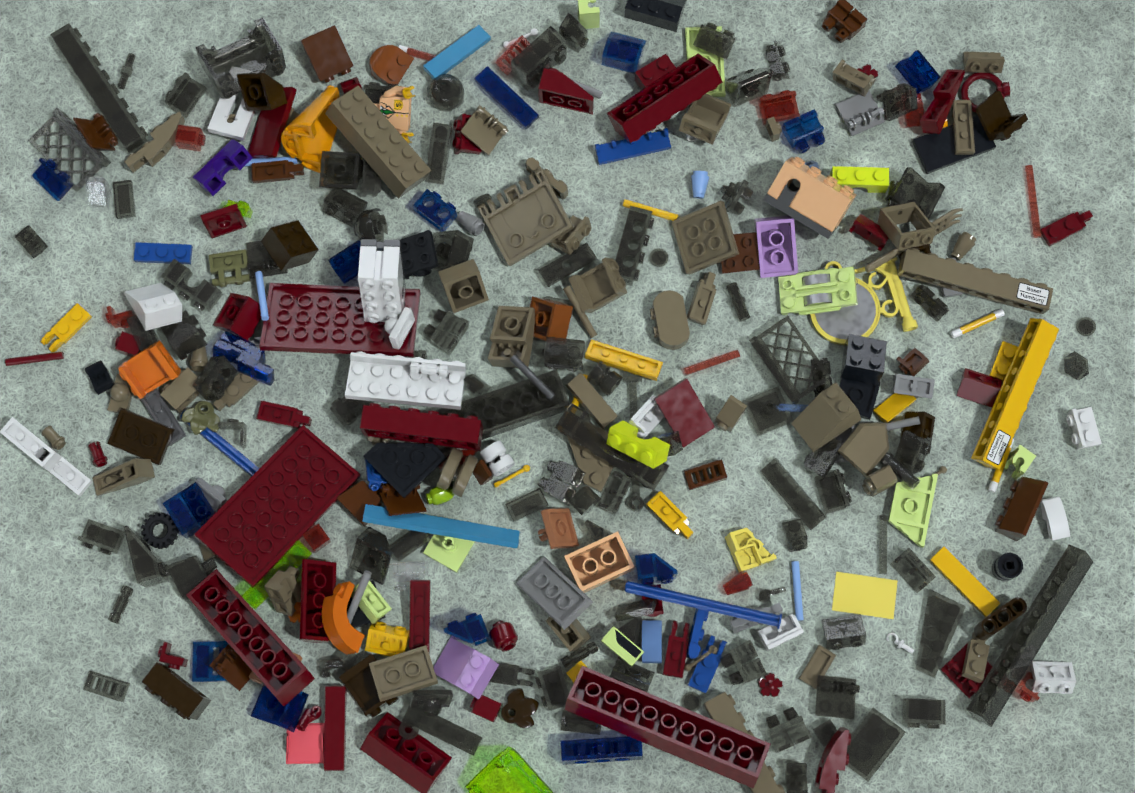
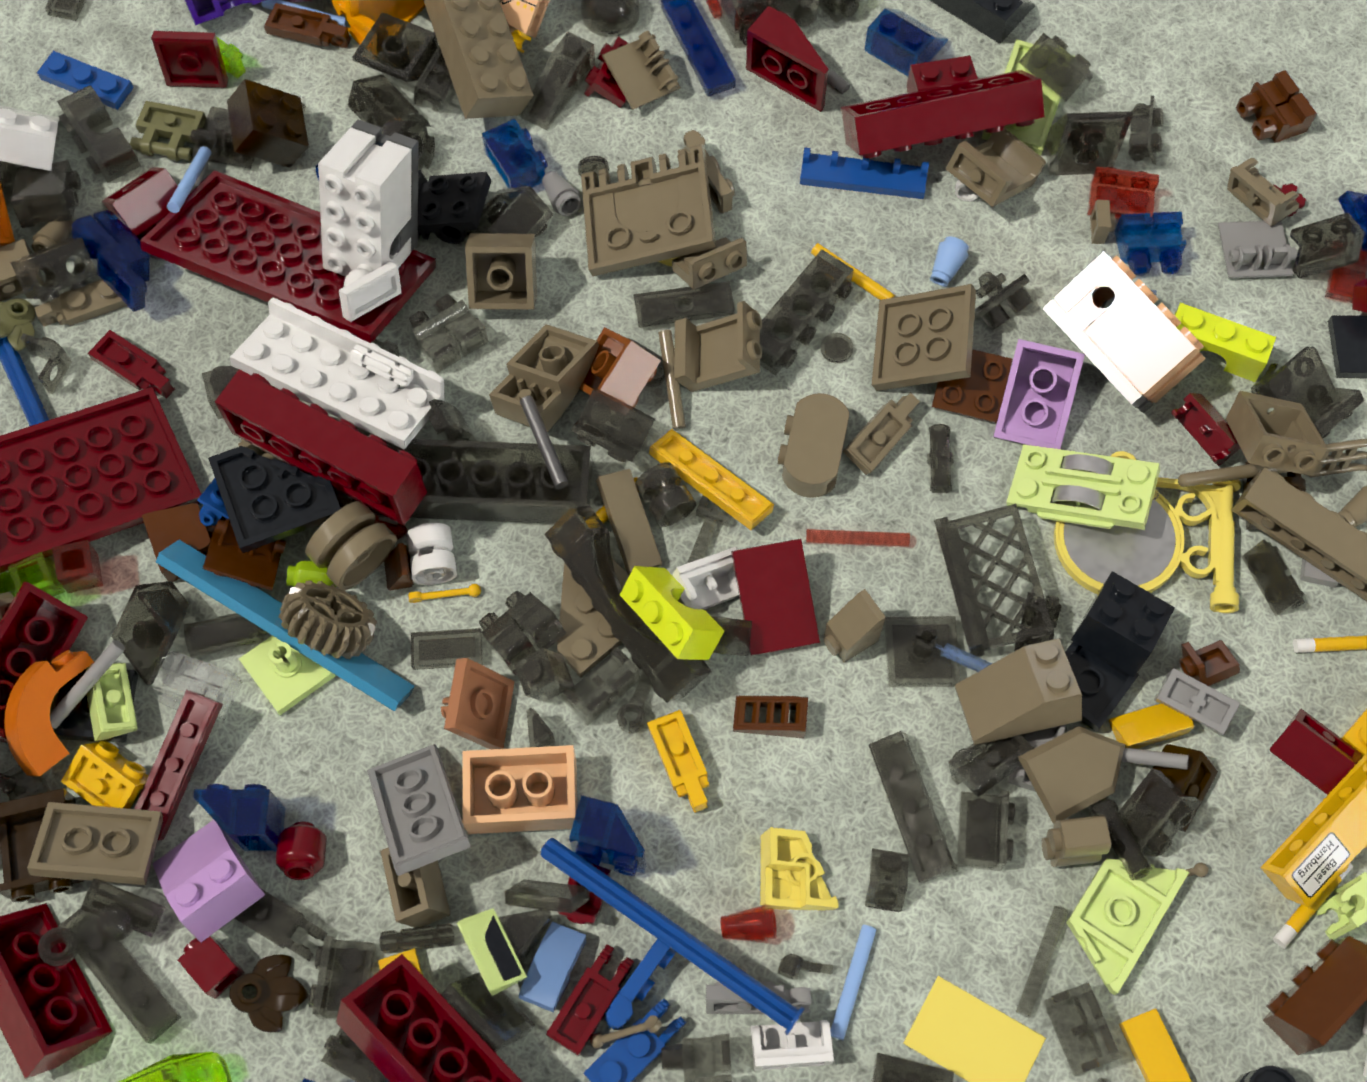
camera: 20 degrees right, 10 degrees down
(463, 515) = (327, 619): none -> dark tan gear

